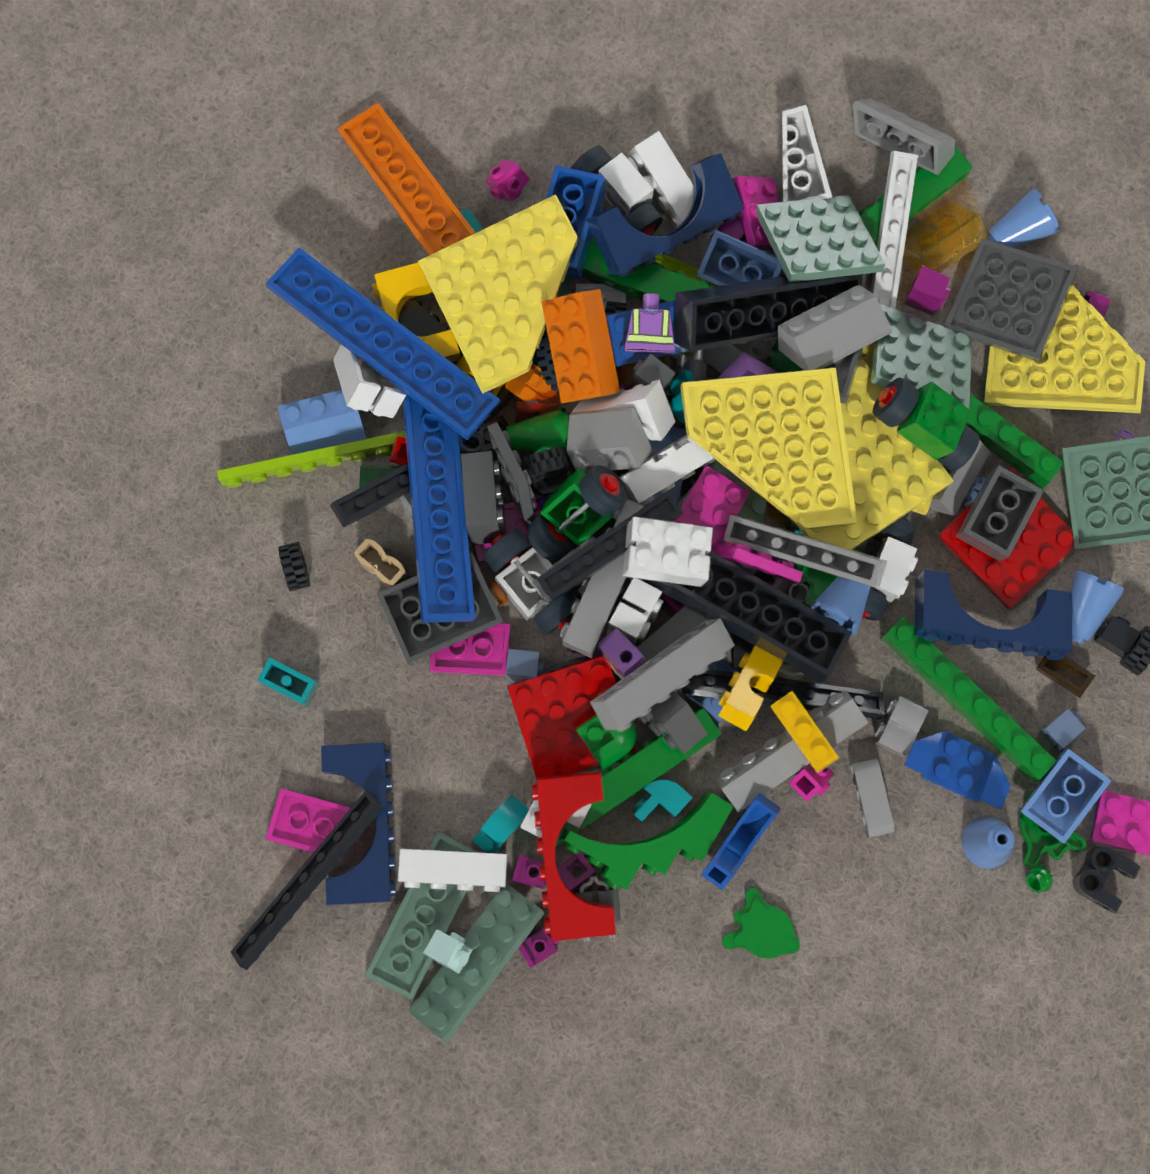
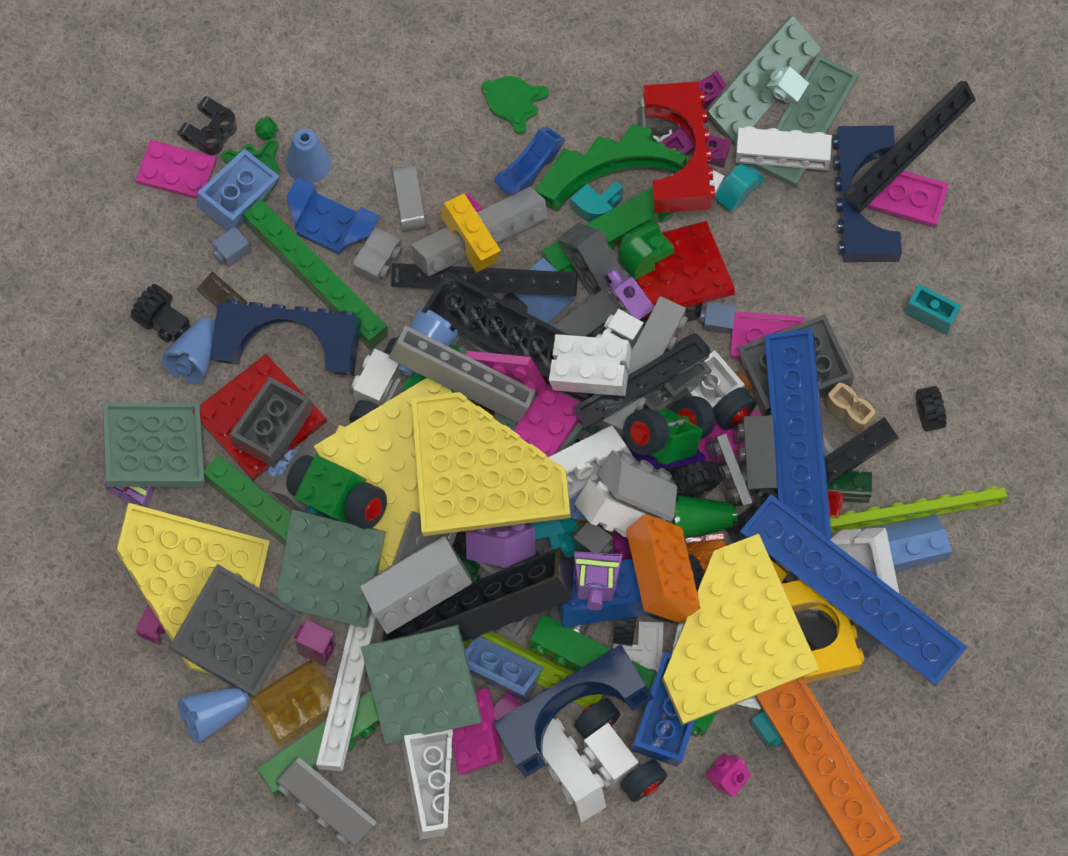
camera: 175 degrees left, 10 degrees down
(662, 674) = (597, 271): light grey brick -> none
(742, 703) = (528, 254): yellow arch -> none

